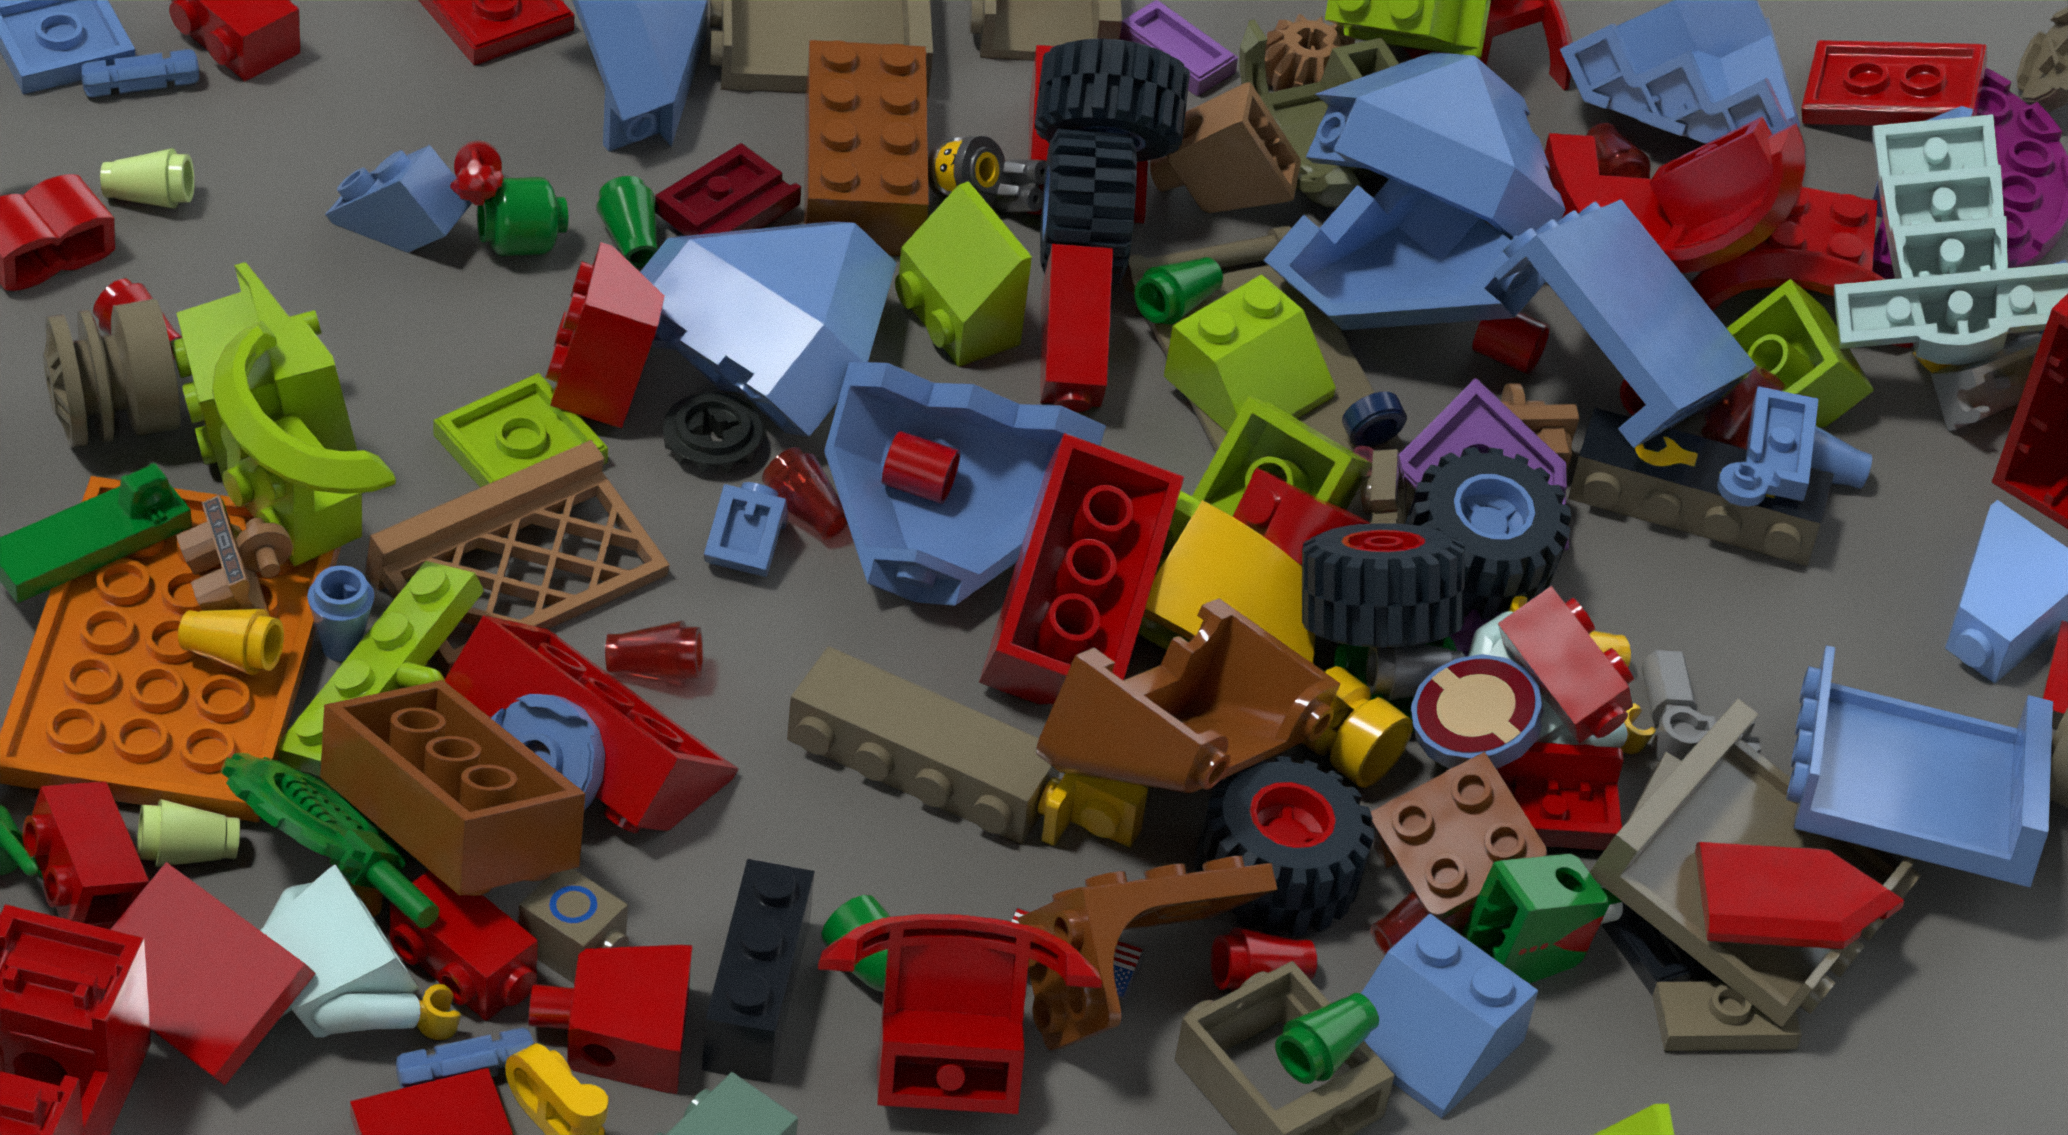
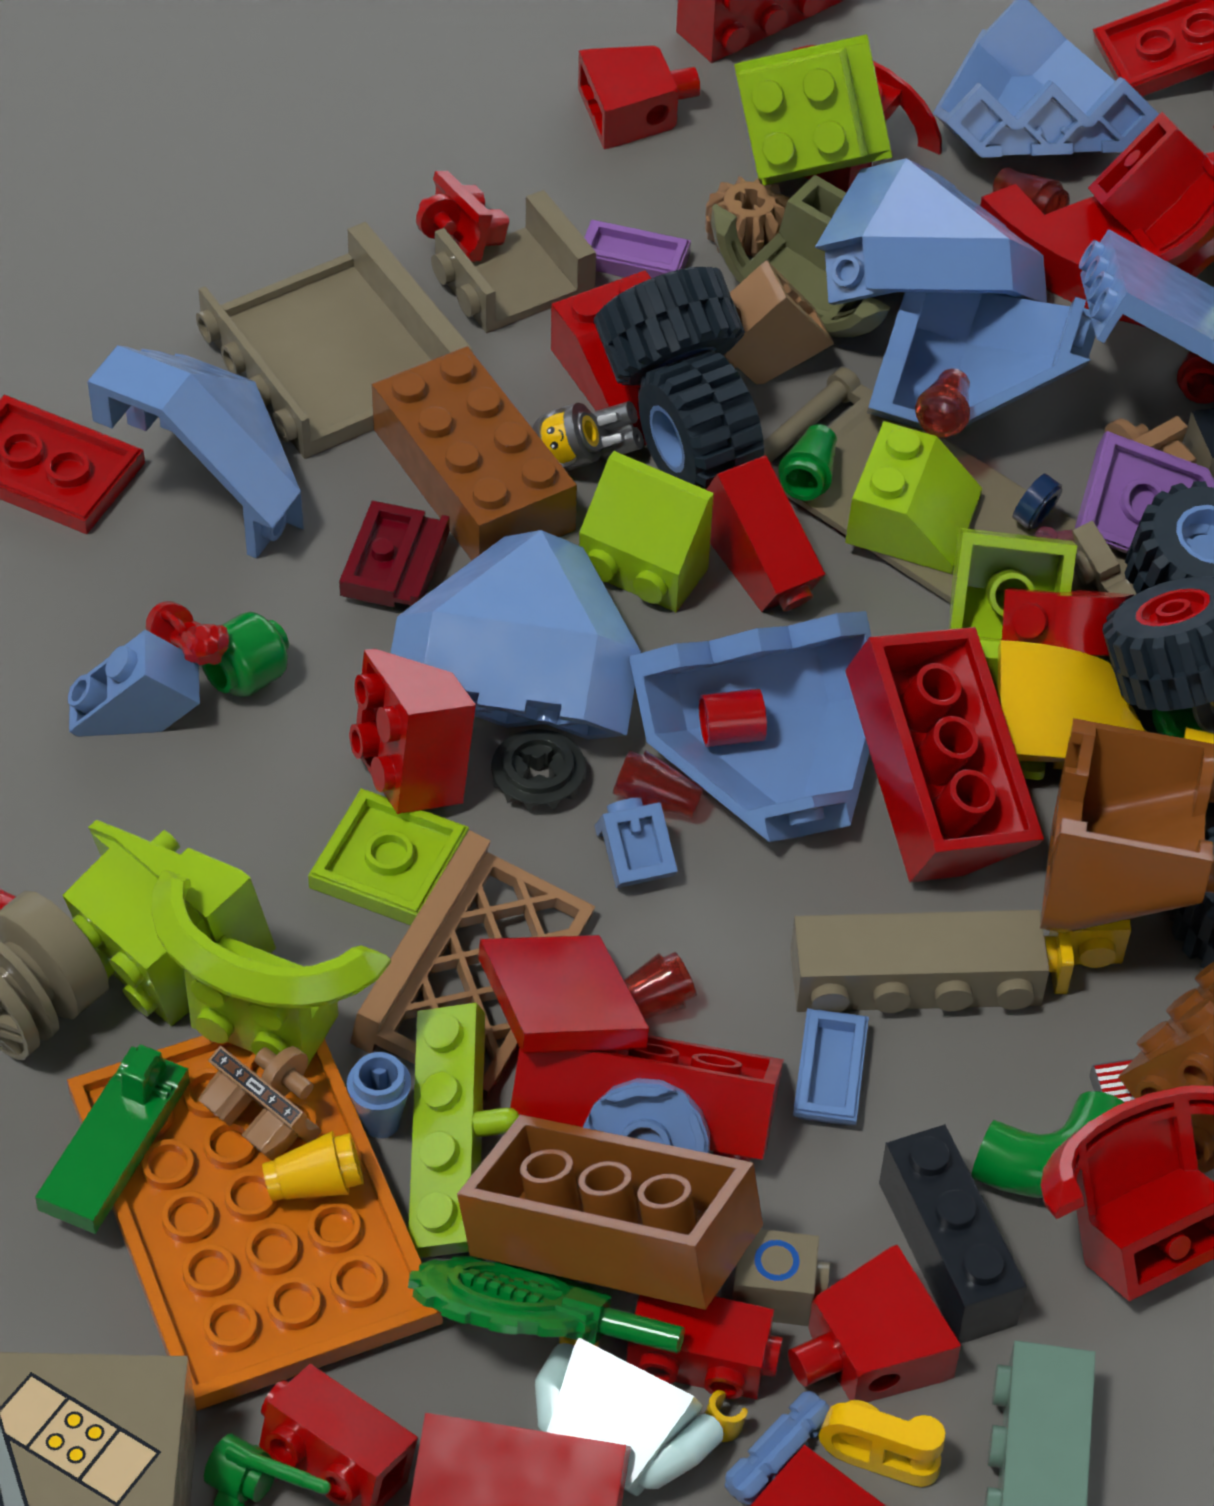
camera: 25 degrees left, 5 degrees up
(185, 834) = (397, 1371): yellowish green cone -> none
(558, 604) = (562, 994): none -> red tile
(629, 216) = (330, 611): green cone -> none
(772, 793) = (831, 1067): none -> medium blue tile
(1330, 284) = (945, 404): none -> clear red cone
(1512, 341) = (1078, 388): red beam -> none

